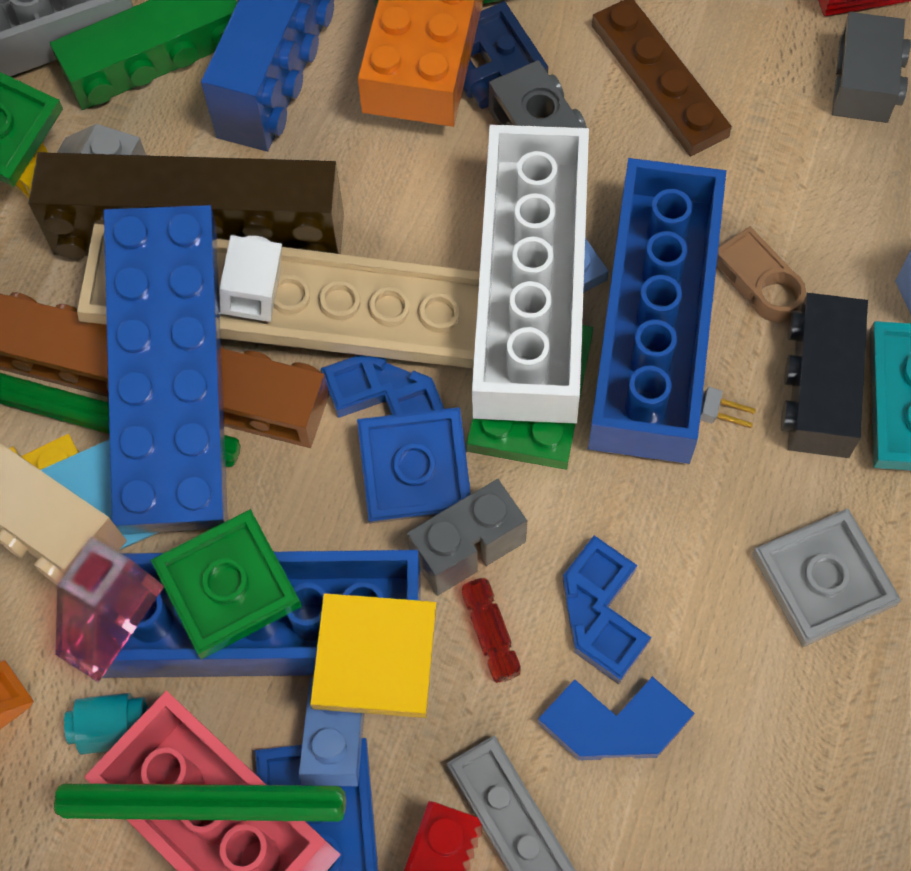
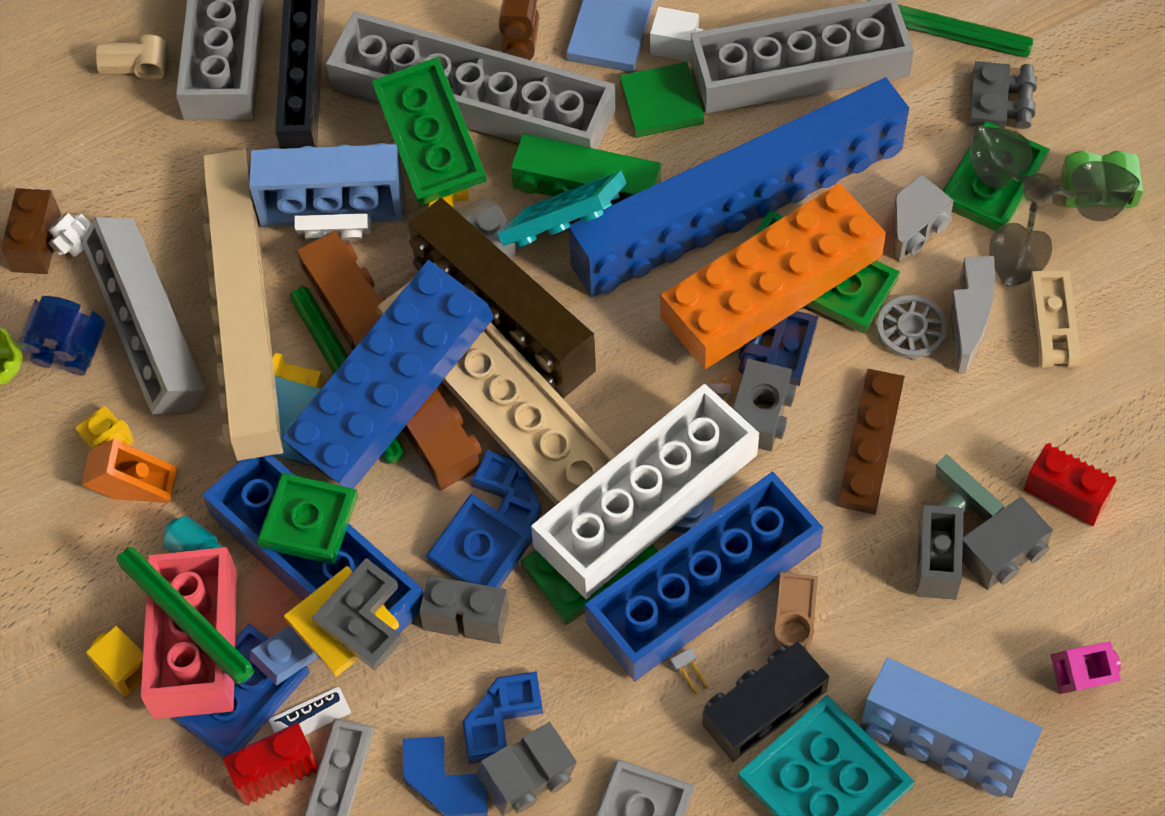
camera: 45 degrees right, 5 degrees down
(100, 607) = (232, 473): clear pink slope -> none
(176, 74) = (559, 210): none -> teal plate
(250, 277) = (484, 362): white brick -> none
(391, 642) = (351, 618): none -> dark grey plate
(413, 784) = (314, 712): none -> white sticker
(478, 140) = (723, 389): none -> light grey piece
(491, 630) = (429, 672): clear red axle -> none
(692, 635) = (526, 770): none -> dark grey brick
(794, 52) = (965, 490): none -> sand green tile
(833, 115) = (939, 552): none -> dark grey brick

